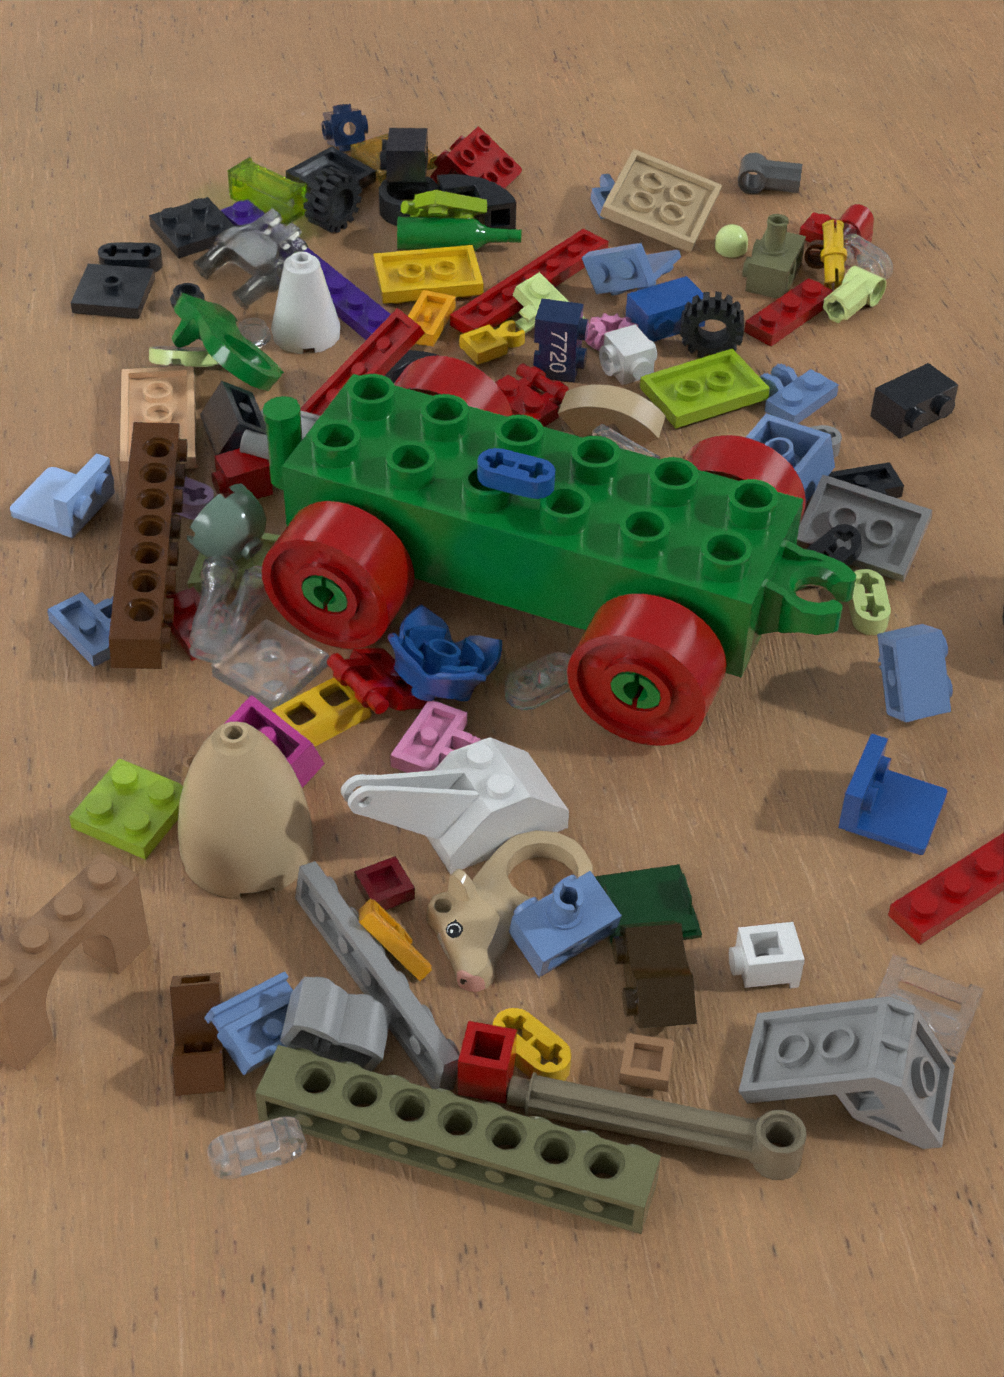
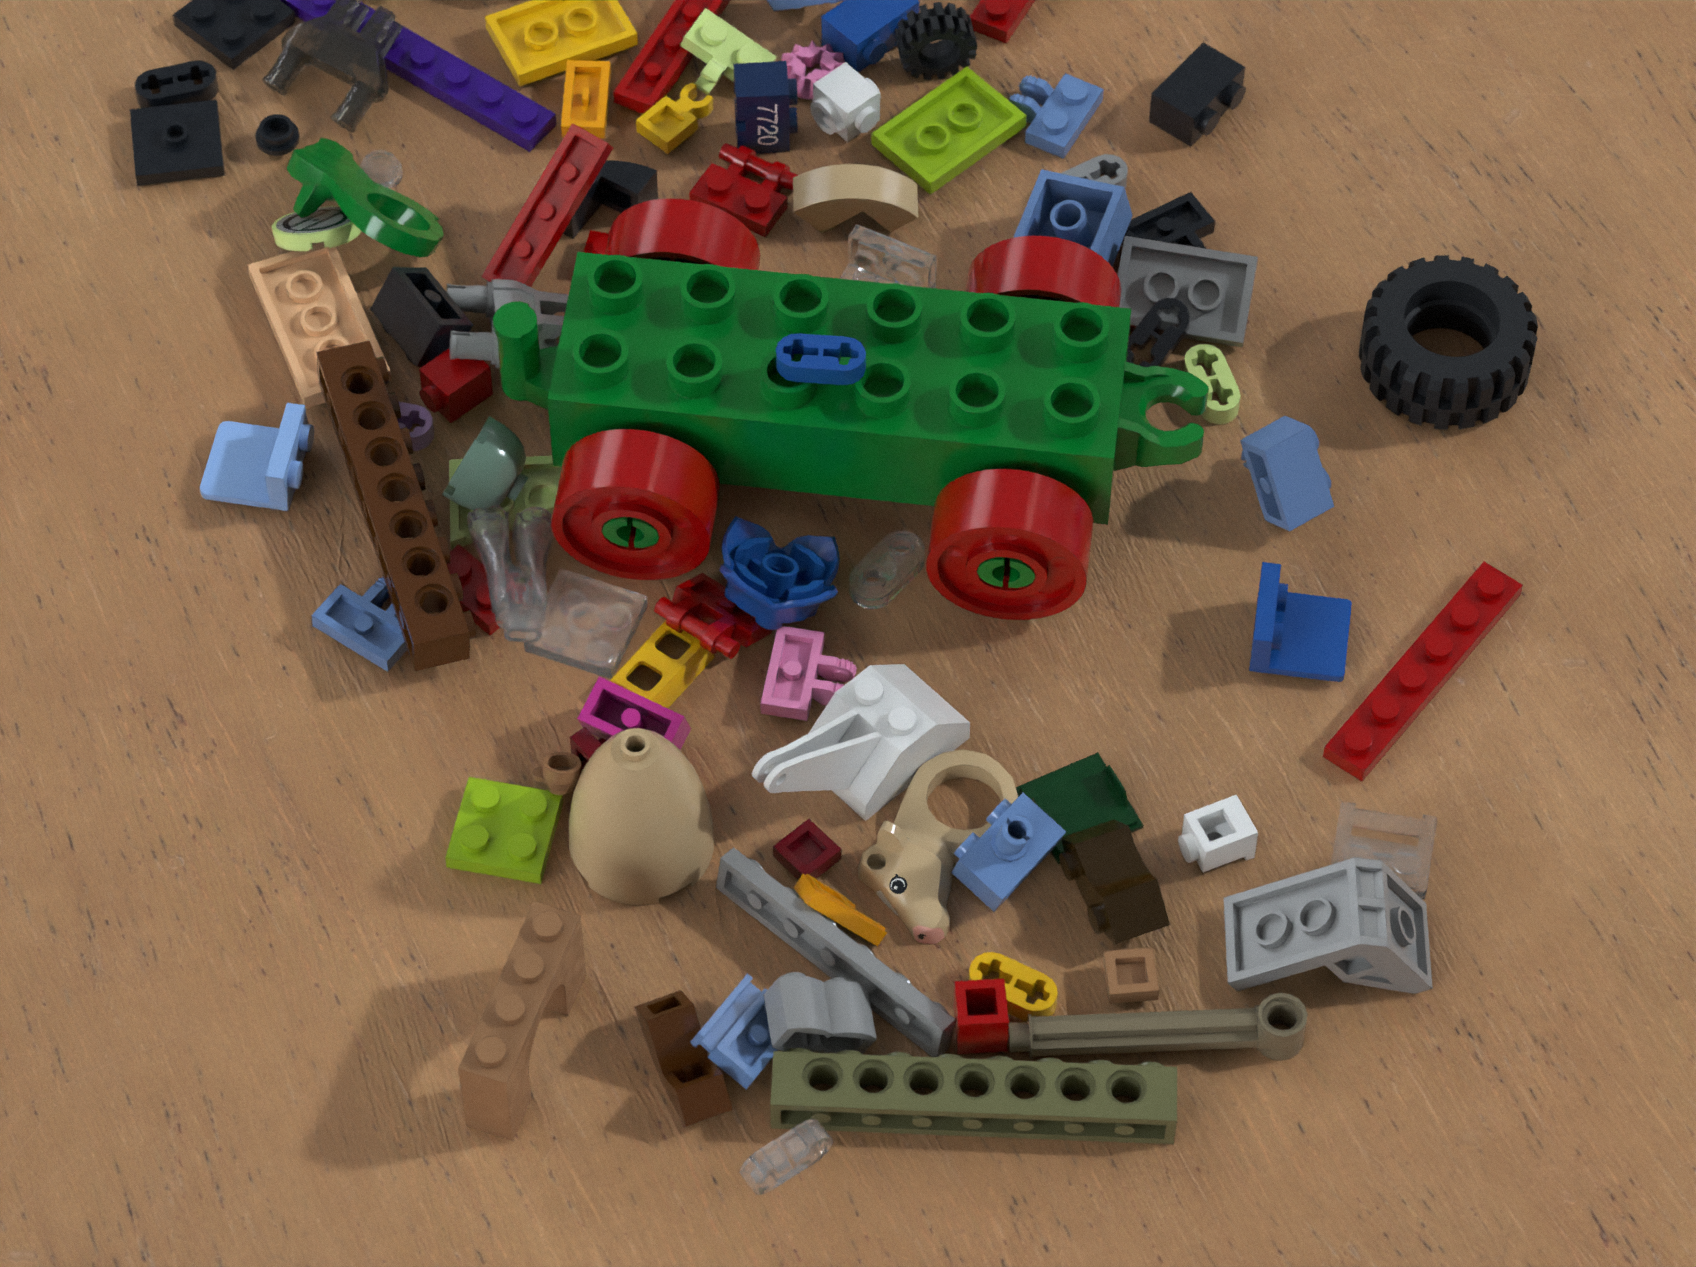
camera: 15 degrees left, 10 degrees up
(304, 307) = (437, 129): white cone -> none

